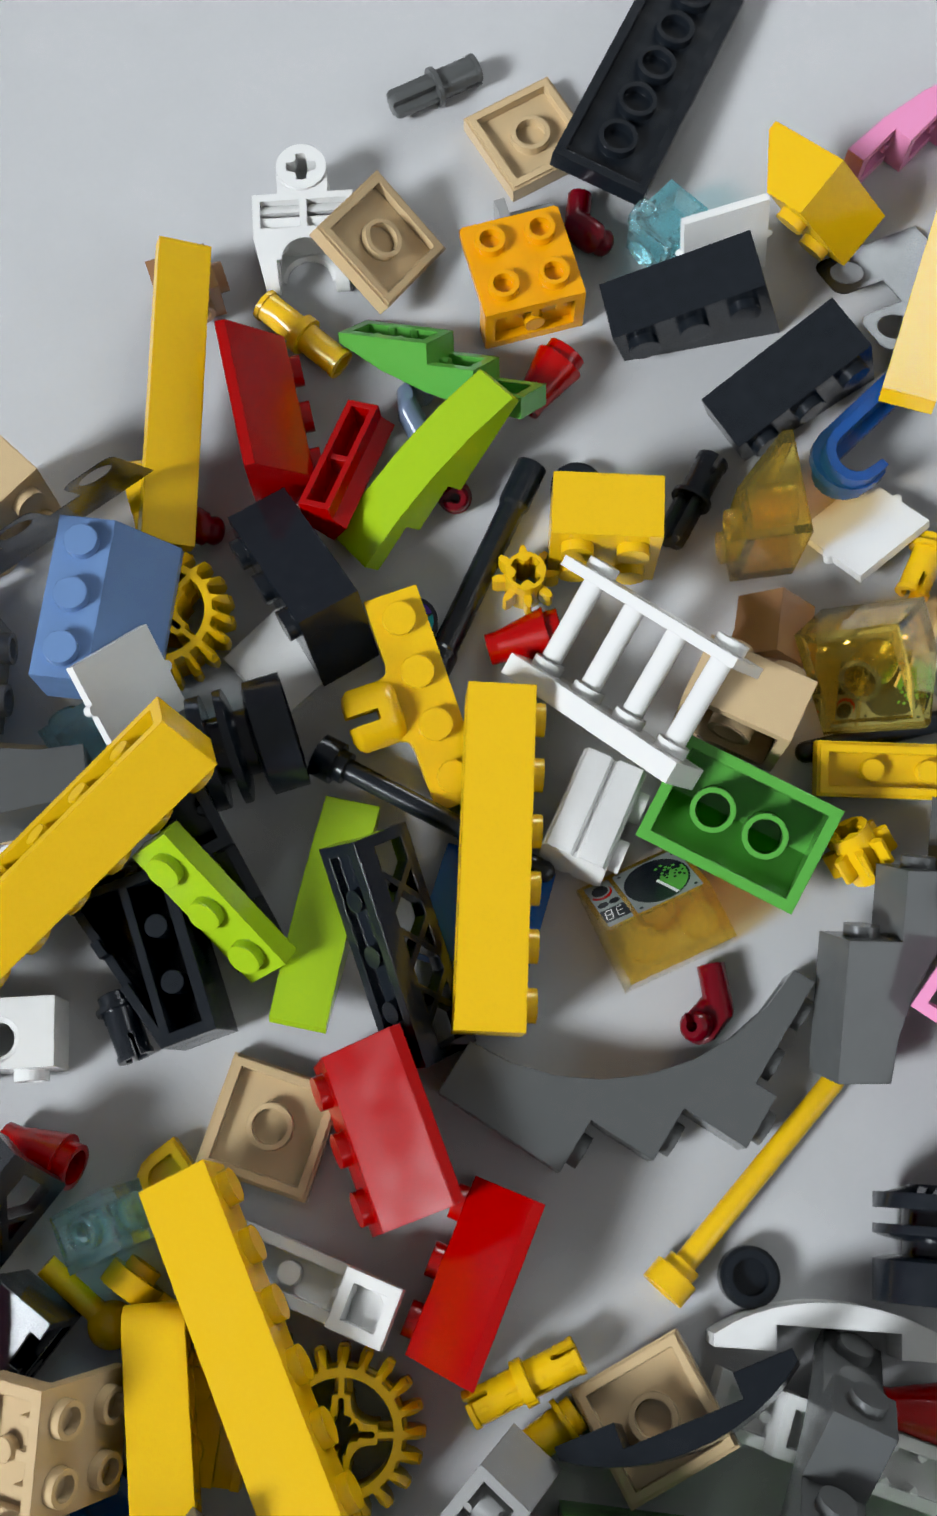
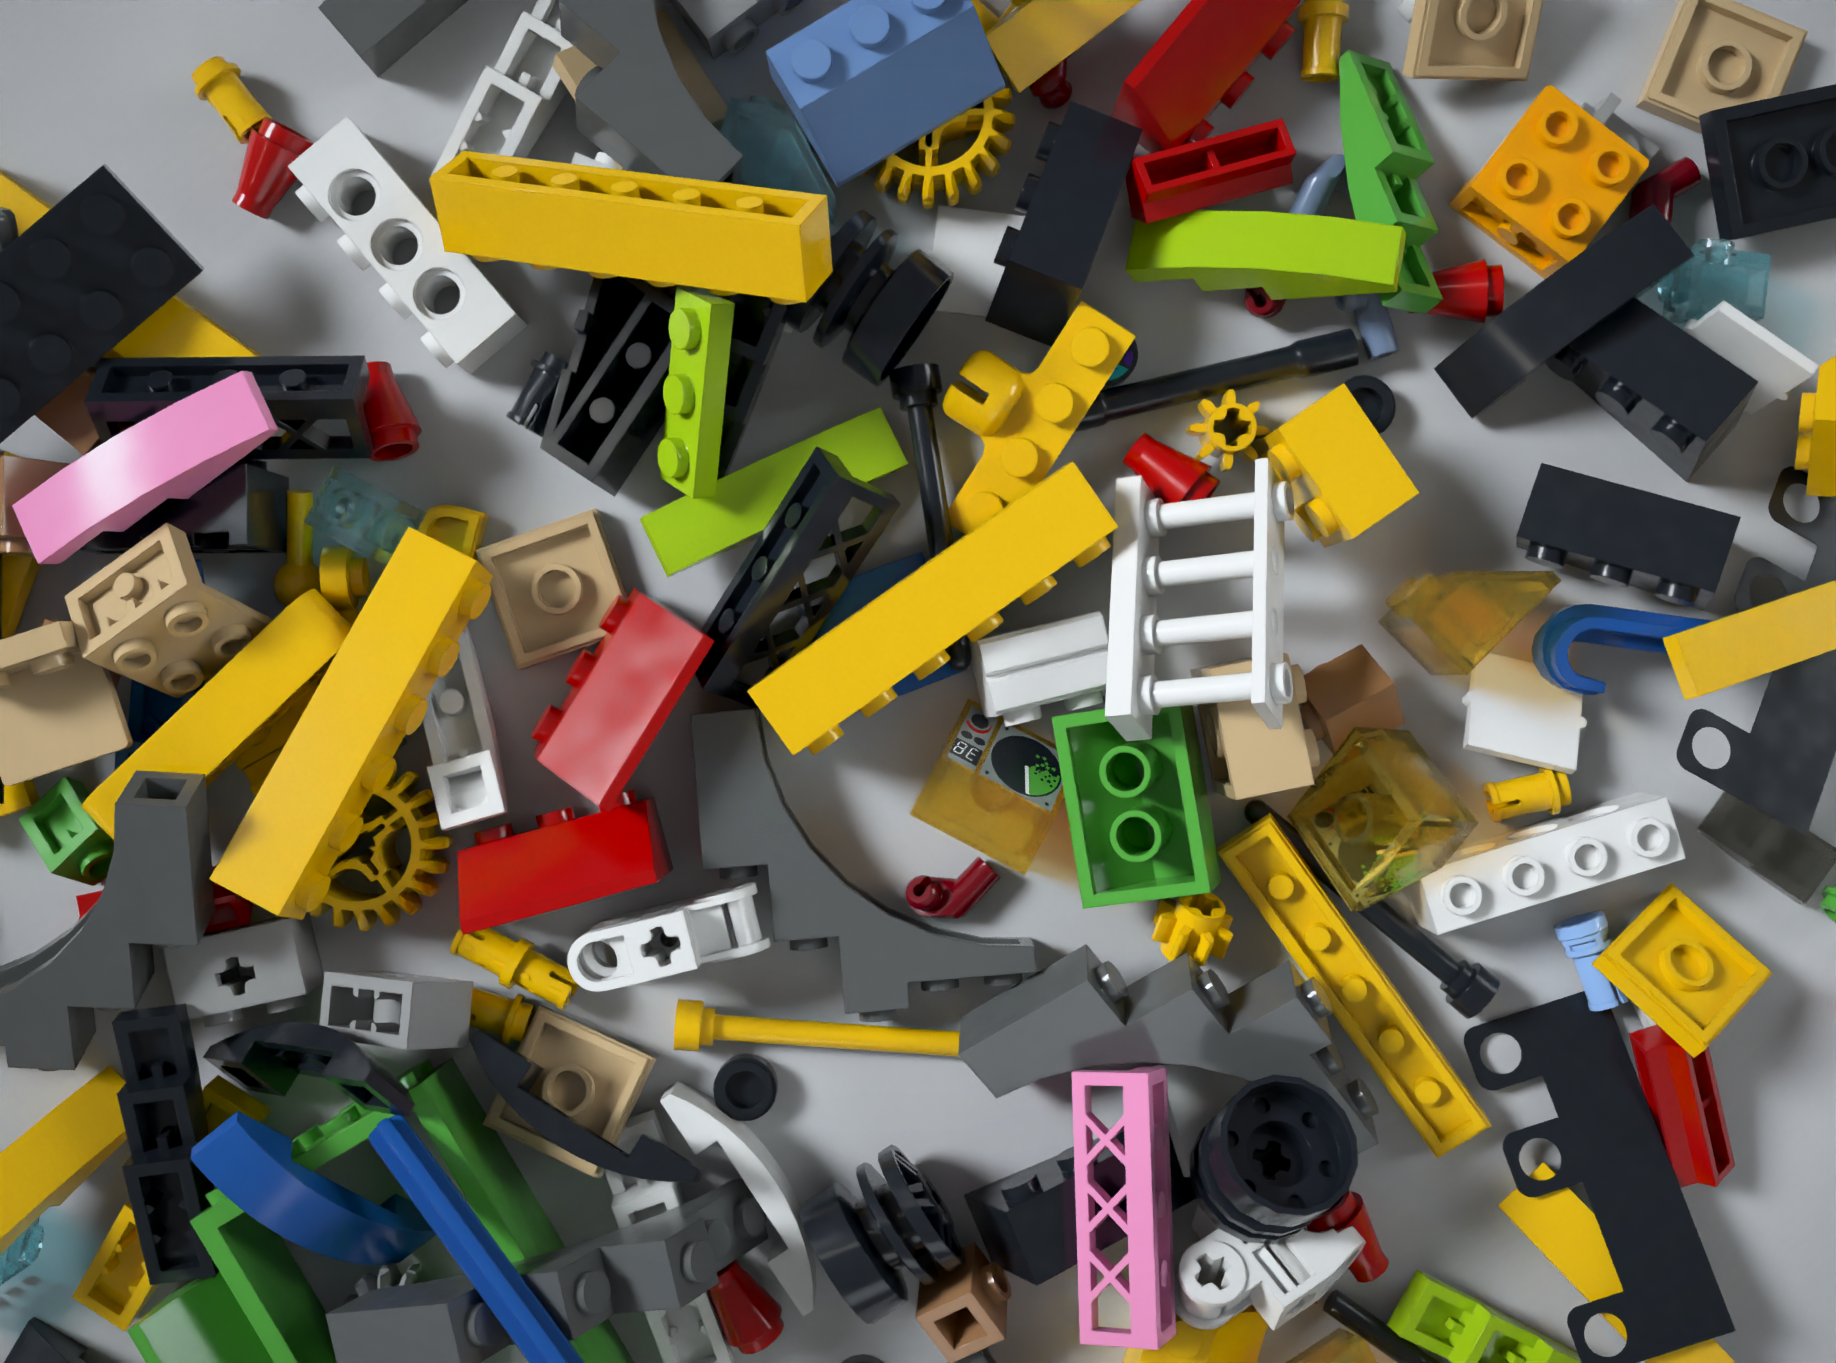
camera: 55 degrees right, 15 degrees up
(123, 681) = (829, 148): white piece -> none
(523, 442) = (1372, 322): none -> sand blue arm
(609, 1212) = (702, 933): none -> white piece
(610, 322) = (1563, 309): none -> black slope
(692, 498) = (1433, 526): black axle -> none

